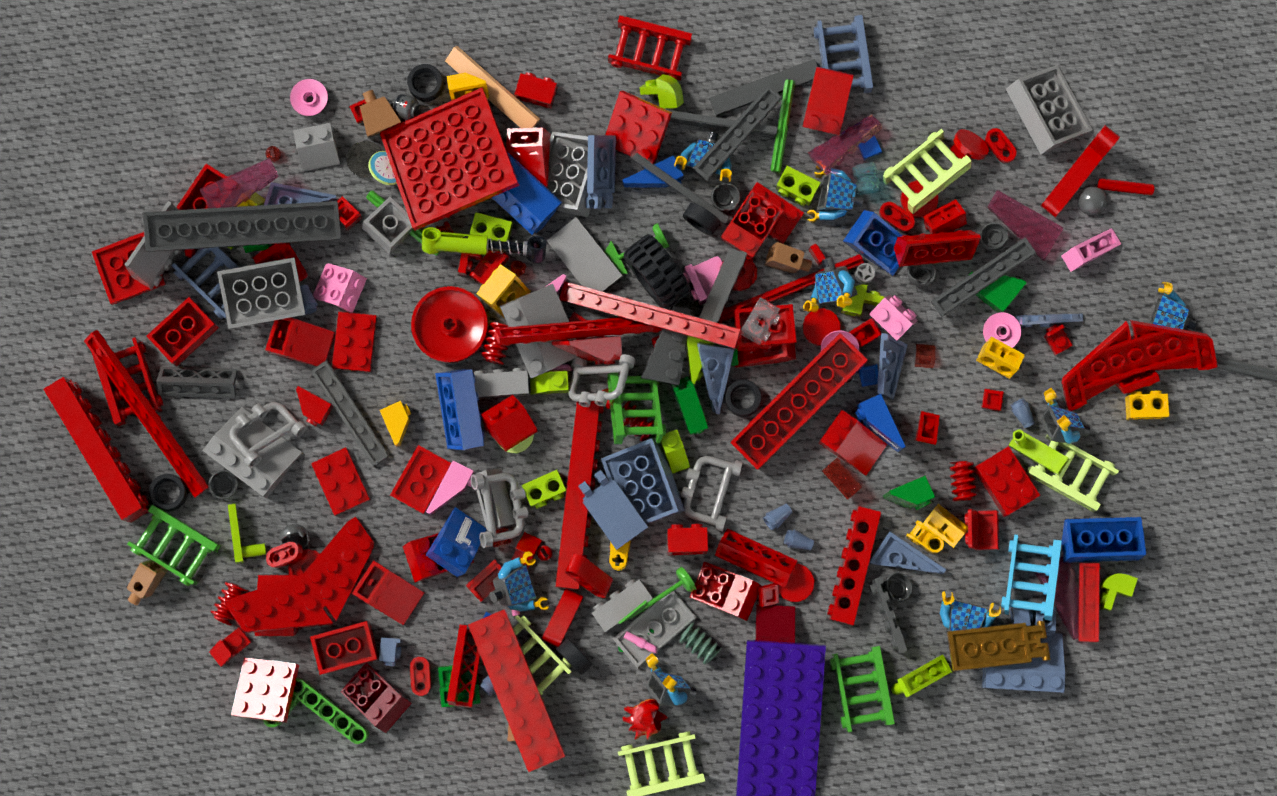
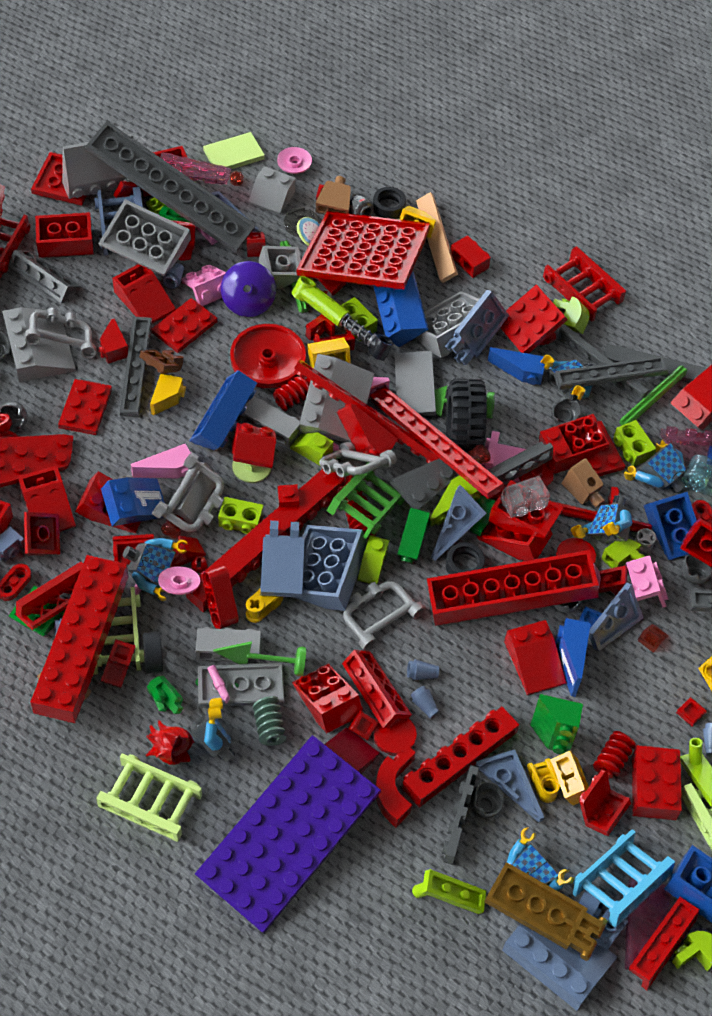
camera: 30 degrees right, 25 degrees down
(247, 126) = (234, 151): none -> yellowish green tile
(371, 397) = (164, 362): none -> reddish brown plate
(376, 263) = (261, 293): none -> dark purple dish
(409, 624) = (41, 534): none -> red slope
(420, 479) = (146, 442): red plate -> none
(518, 268) = (356, 357): clear red hinge -> none
(531, 150) = (434, 284): red slope -> none
(542, 581) = (179, 580): none -> bright pink dish
(555, 684) = (118, 663): none -> red slope
(562, 617) = (171, 618): red beam -> none
(570, 448) = (288, 495): none -> red plate
(610, 681) = (165, 695): none -> green rock
(677, 186) = (532, 376): dark grey tile -> none
(687, 540) = (326, 624): red brick -> none
(692, 298) = (480, 454): none -> clear red wheel
(701, 218) = (533, 412): black tyre -> none
(819, 631) = (390, 801): none -> red arch
(842, 478) = (504, 678): clear red hinge -> none
(880, 695) = (398, 882): bright green fence -> none
(927, 428) = (611, 691): red slope -> none

